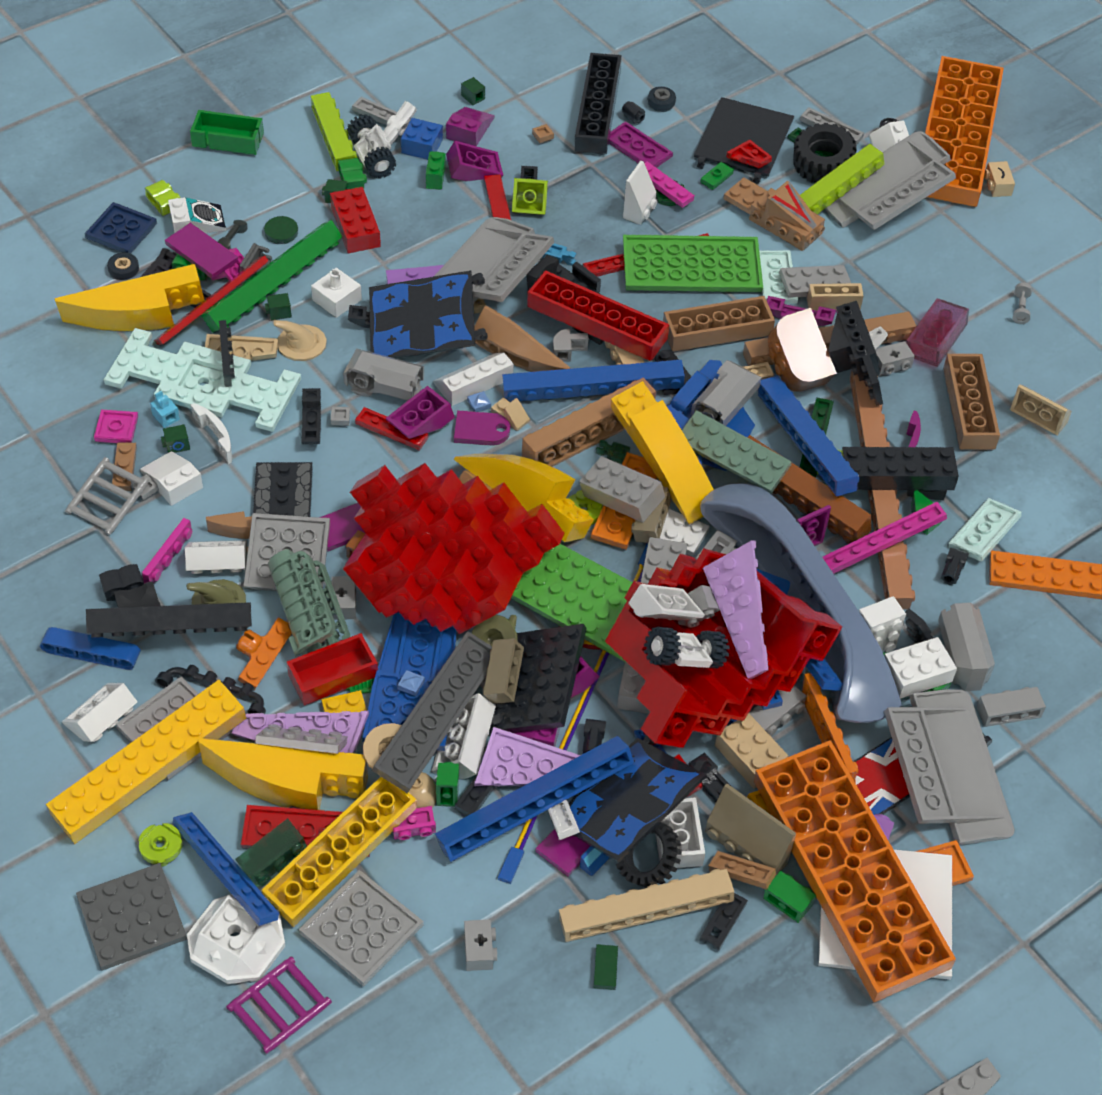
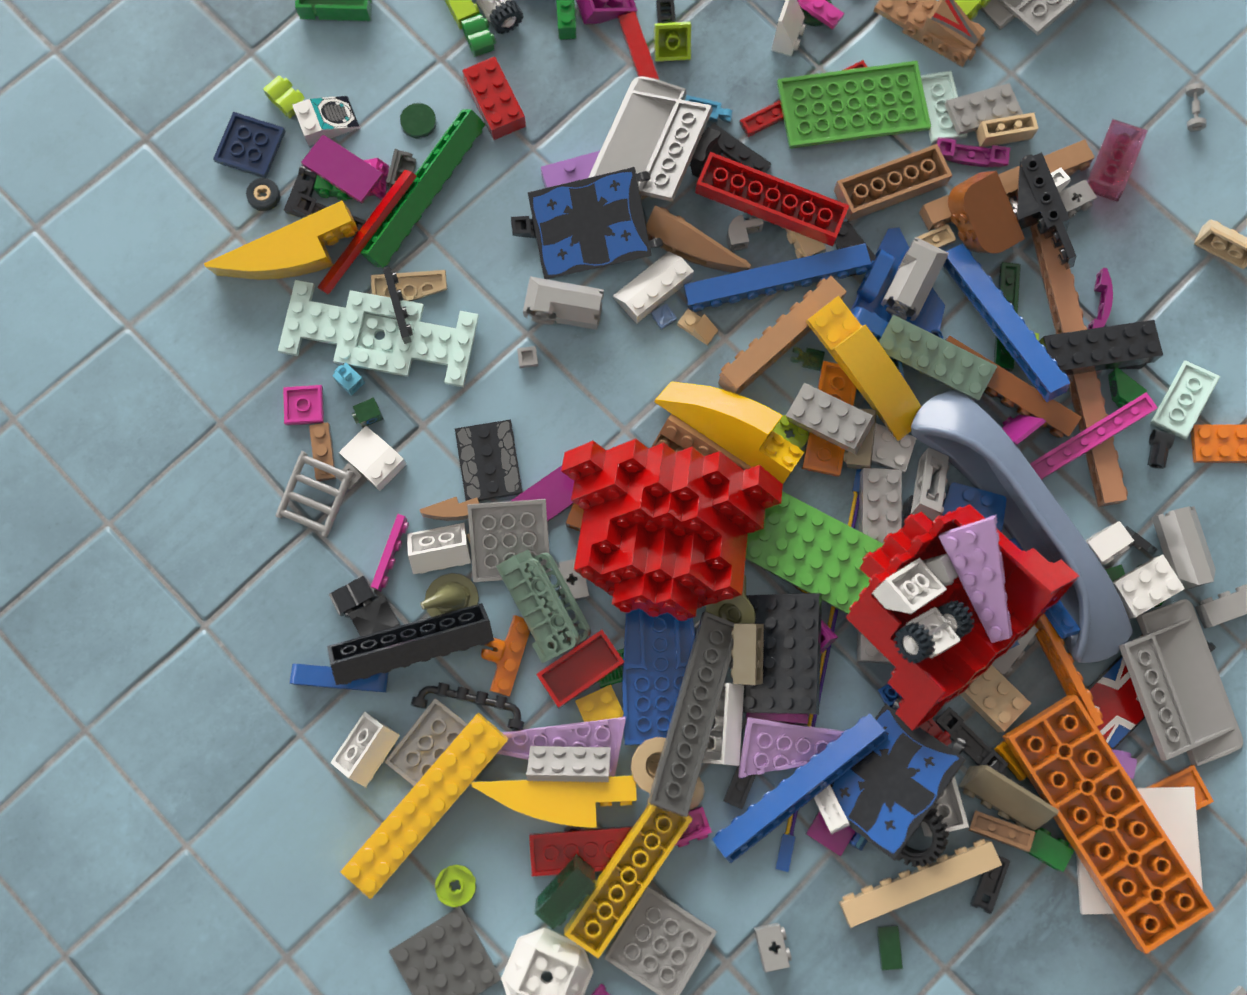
camera: 10 degrees left, 25 degrees up
(205, 417) = (390, 381): white slope -> none
(226, 869) = (524, 914): blue plate -> none
(239, 226) = (374, 123): pearl dark grey bar -> none
(278, 306) = (436, 226): dark green brick -> none
(300, 341) = (468, 265): tan piece -> none
(311, 416) = (499, 364): black slope -> none
(333, 186) = (463, 59): dark green brick -> none
(336, 292) = (493, 199): white brick -> none
(377, 422) = (582, 365): red plate -> none
(411, 683) = (659, 676): medium blue tile -> none
(422, 414) = (609, 348): magenta slope -> none
(447, 784) = (715, 783): green brick -> none
(480, 428) = (669, 349): magenta tile -> none
(586, 276) = (747, 139): black tile -> none
(593, 733) = (841, 696): black piece -> none
(971, 401) = (1158, 245): medium nougat brick -> none

